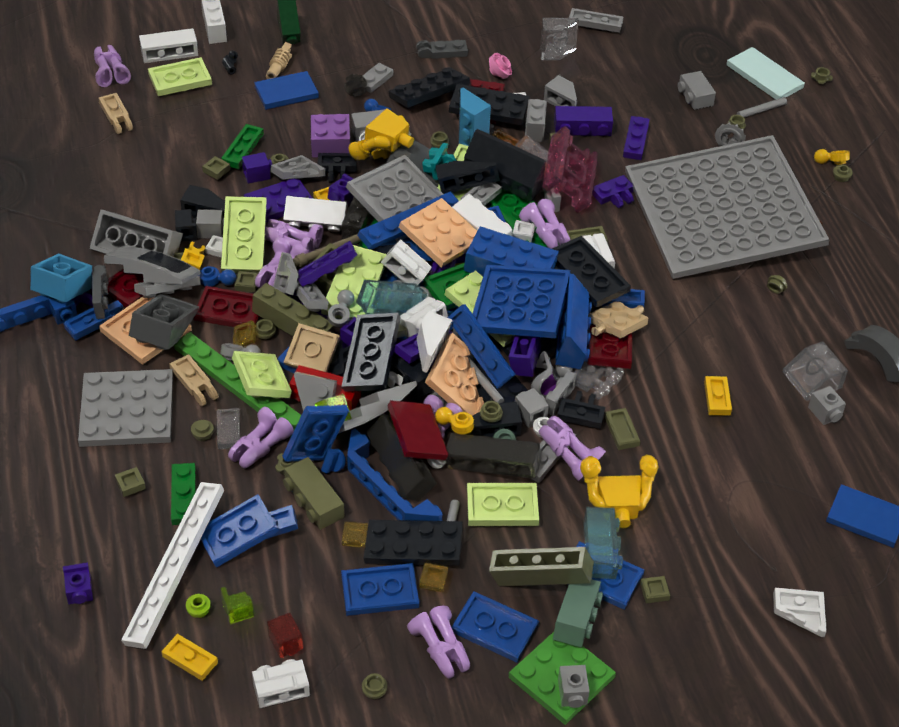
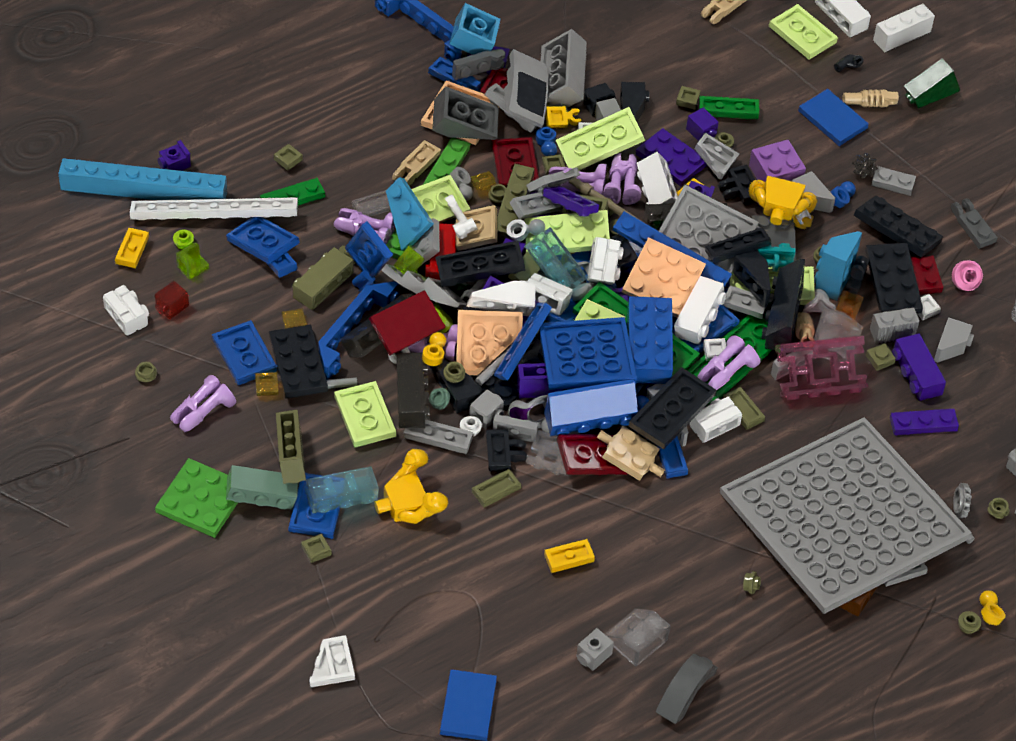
camera: 70 degrees right, 5 degrees up
(98, 625) = (139, 181): none -> dark azure brick
(126, 408) = (368, 130): light grey plate -> none
(202, 430) = (364, 186): olive plate -> none
(276, 391) = (408, 213): none -> dark azure wing
(313, 355) = (464, 226): none -> white brick
(425, 174) = (738, 245): none -> black tile
(495, 626) = (234, 439): blue tile -> none
(559, 436) = (440, 433): lavender piece -> none
(573, 686) = (179, 497): light grey brick -> none
(614, 191) = (826, 415): dark purple hinge -> none

